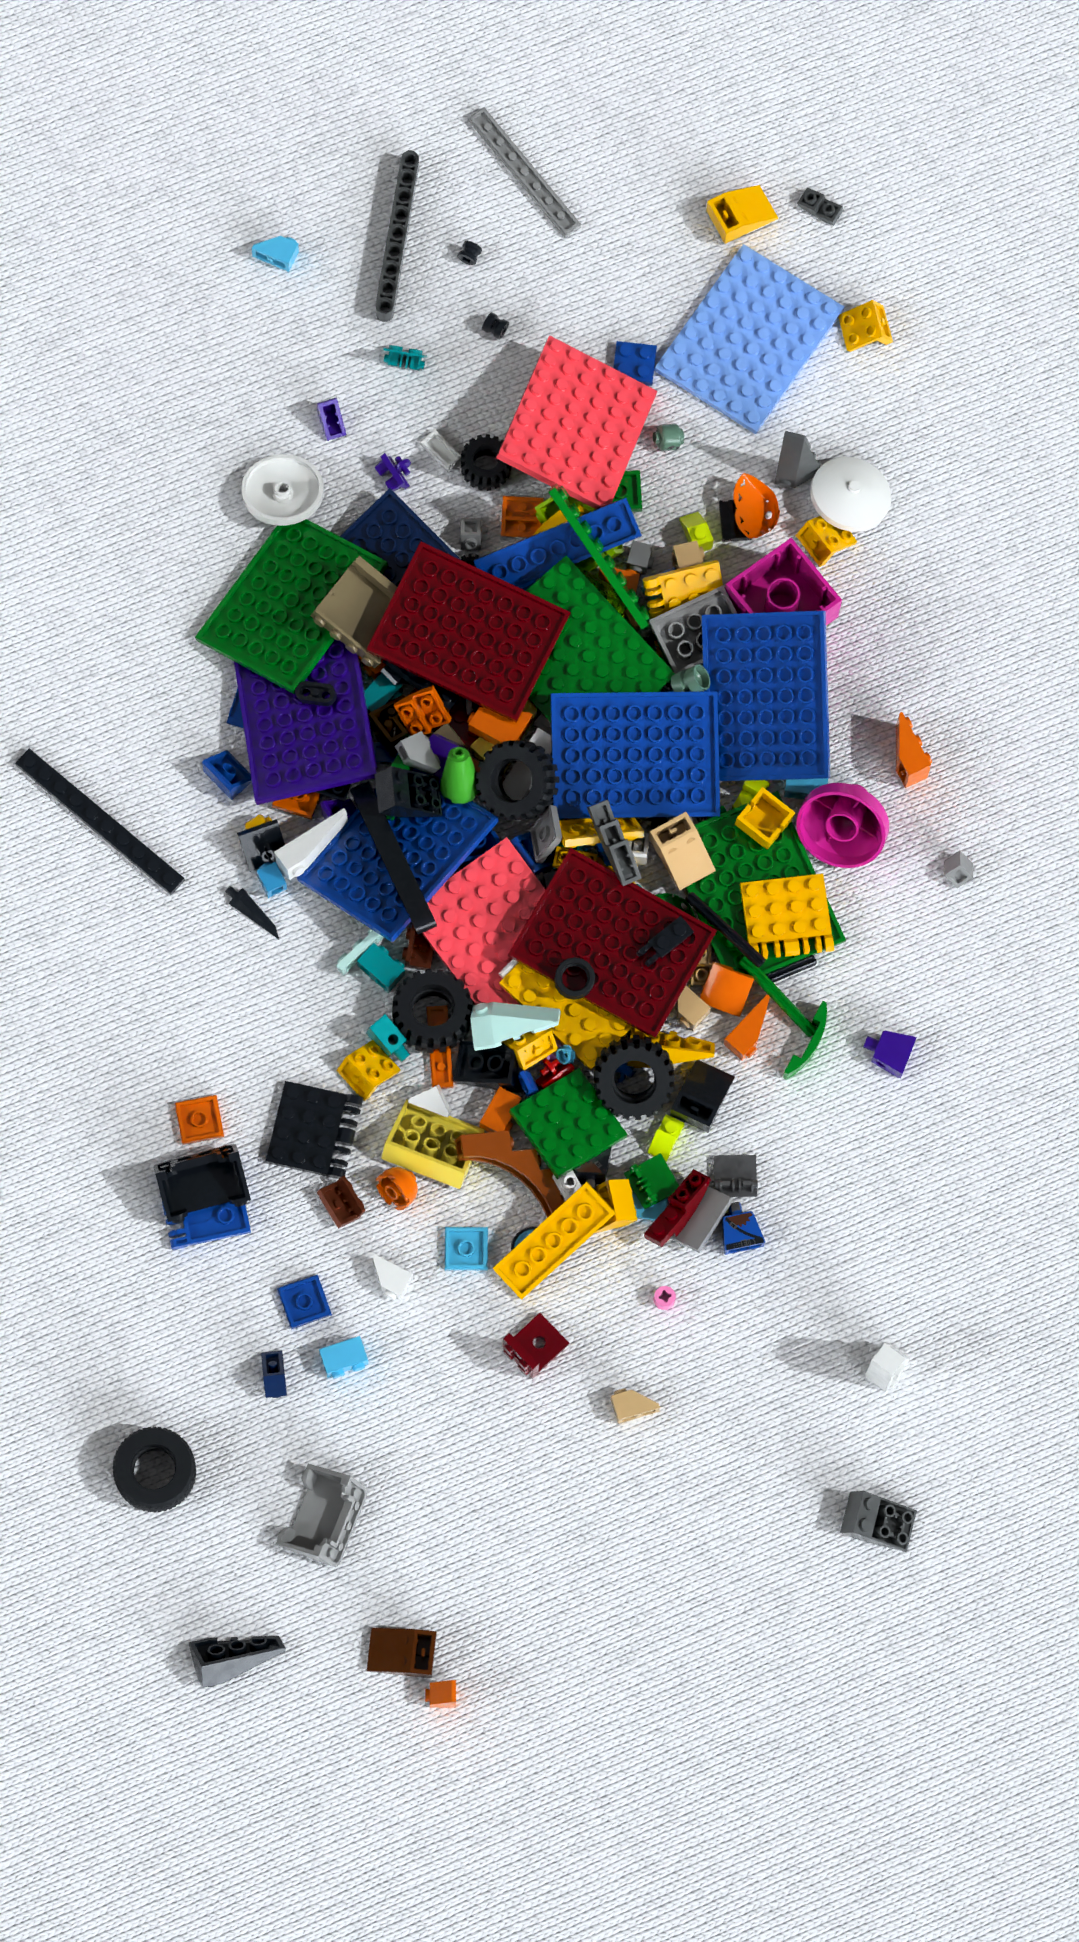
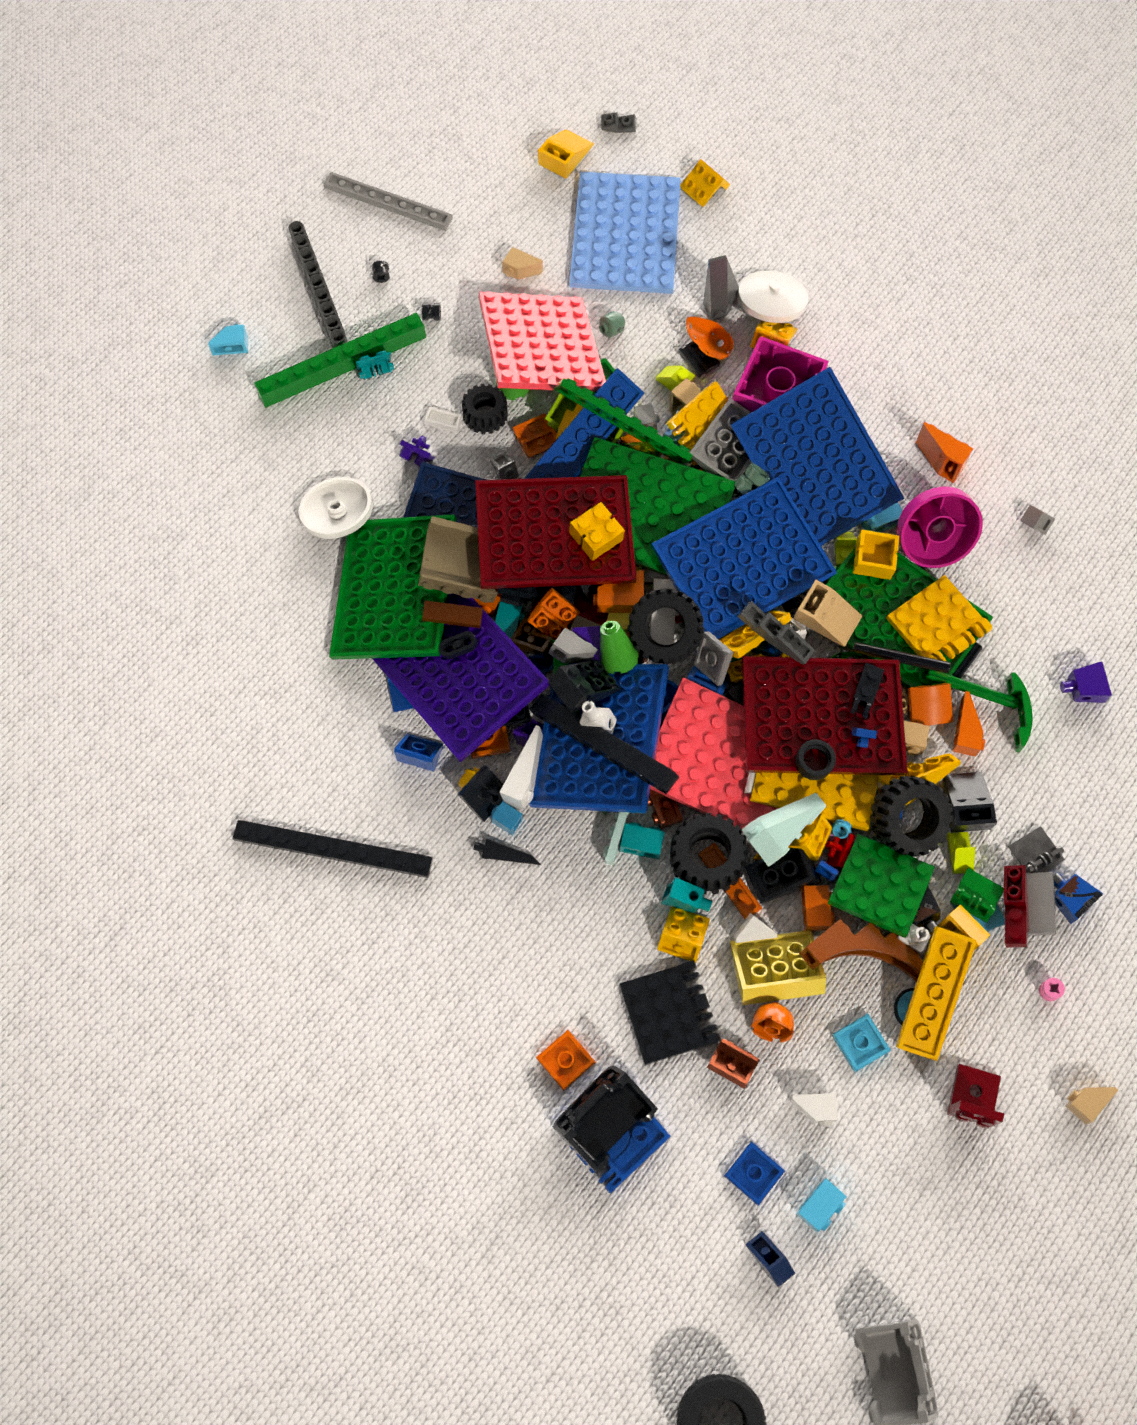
camera: 25 degrees left, 5 degrees down
(327, 661) = (452, 614): none -> reddish brown tile
(331, 419) = (343, 437): dark purple slope -> none
(374, 332) = (339, 360): none -> green brick
(401, 832) = (597, 717): none -> white bracket
(505, 654) = (599, 531): none -> yellow piece
(616, 320) = (521, 264): none -> tan slope
(634, 979) = (864, 735): none -> blue tile
(636, 361) = (552, 284): blue plate -> none

